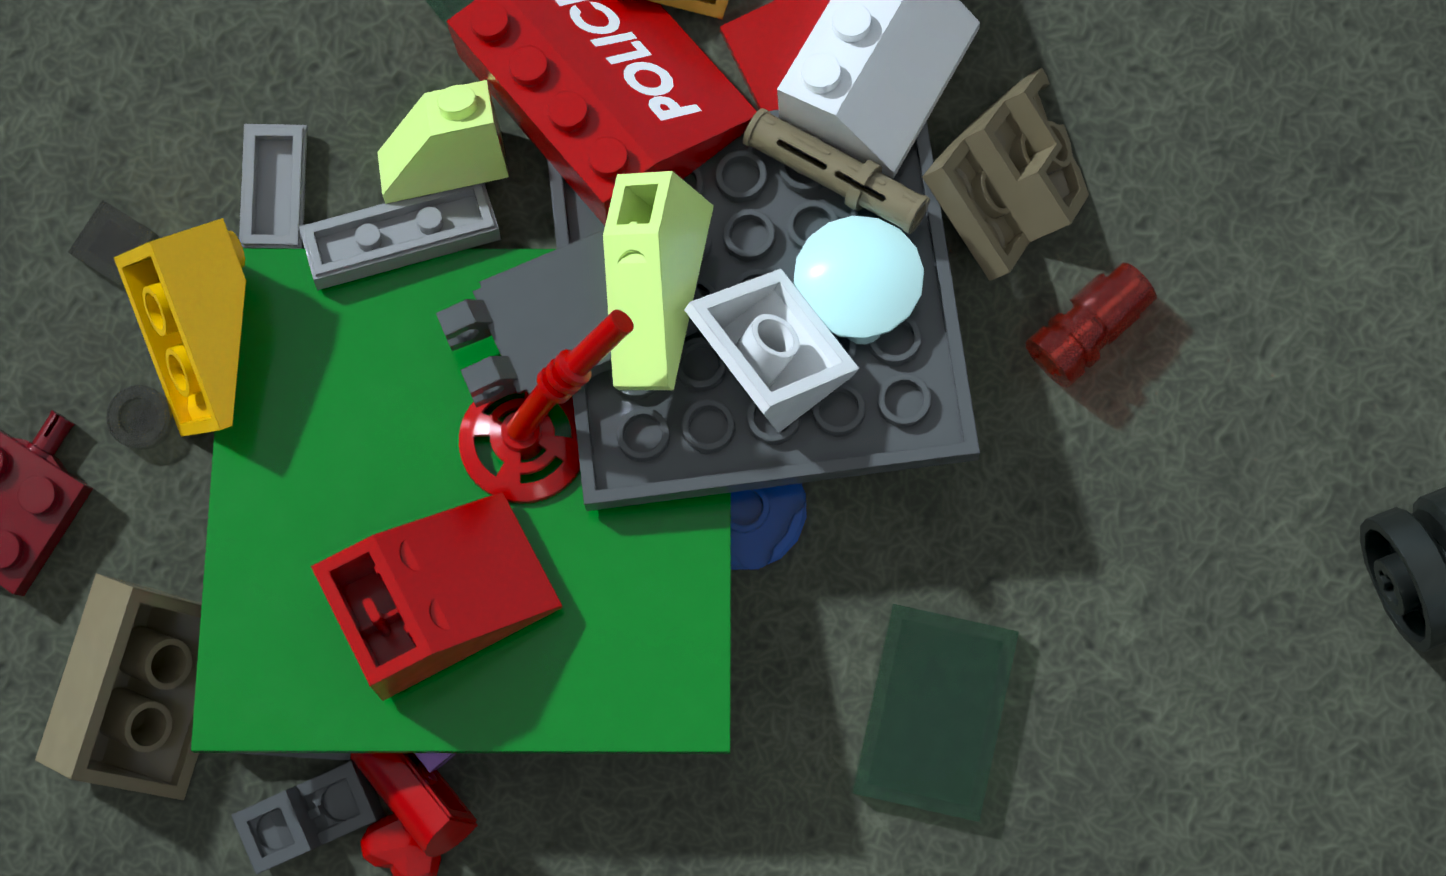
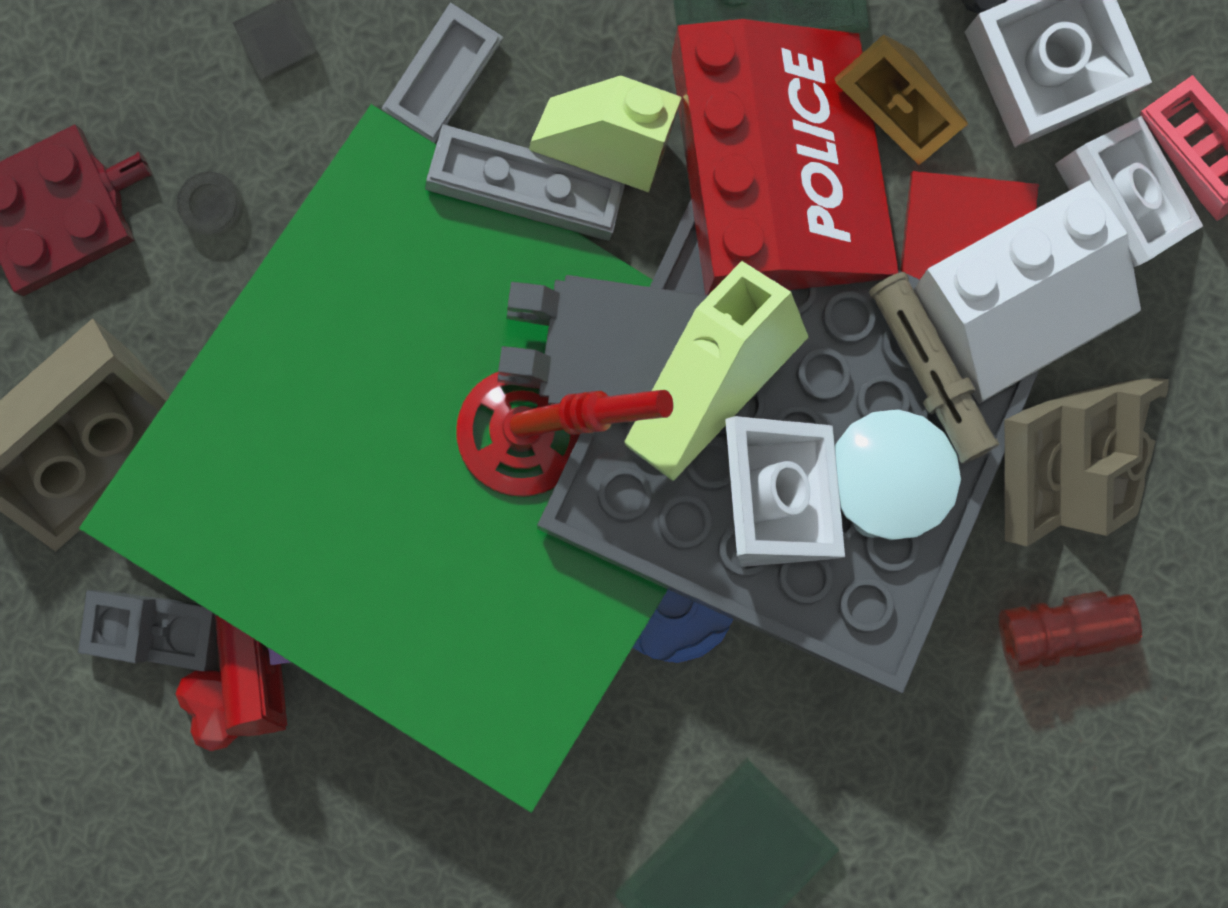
camera: 30 degrees right, 5 degrees up
(191, 315) = (304, 145): yellow slope -> none
(435, 591) = (365, 523): red slope -> none

